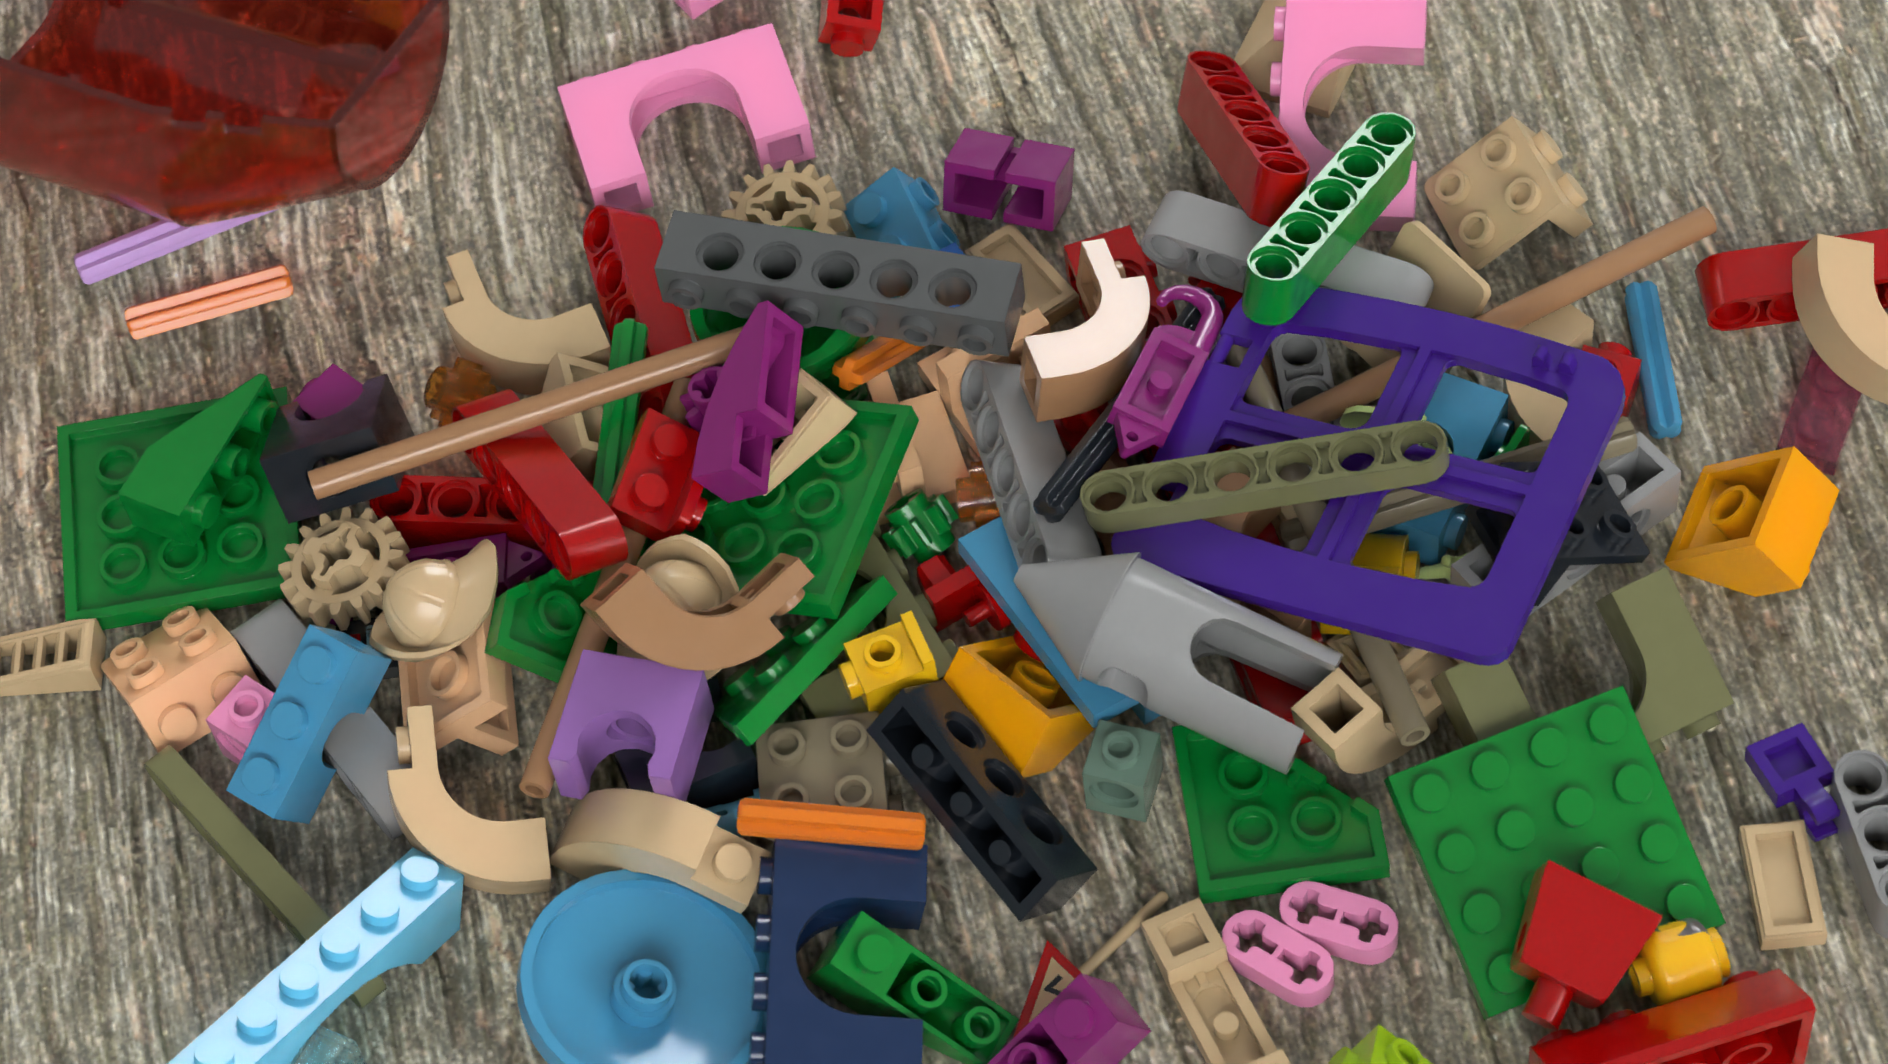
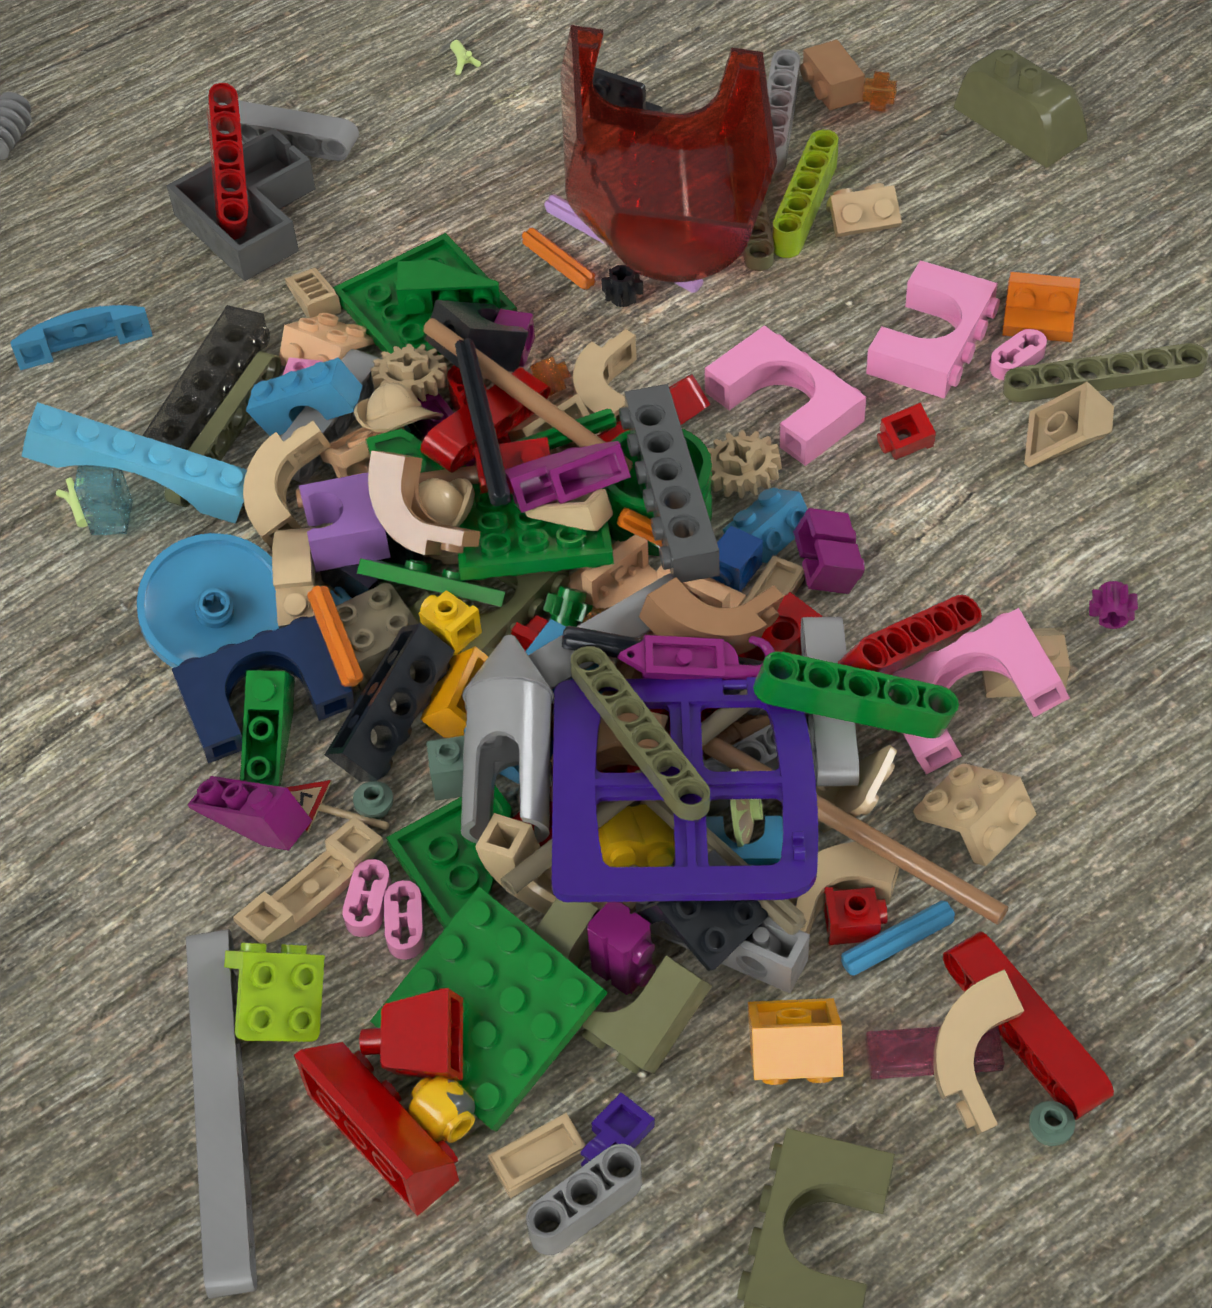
camera: 60 degrees right, 5 degrees down
(73, 776) = (209, 376): none -> clear smoke brick
(335, 237) = (622, 286): none -> black gear
(579, 471) = (482, 423): none -> black axle
(1113, 911) = (373, 808): none -> sand green plate
(1553, 653) = (621, 947): none -> magenta brick

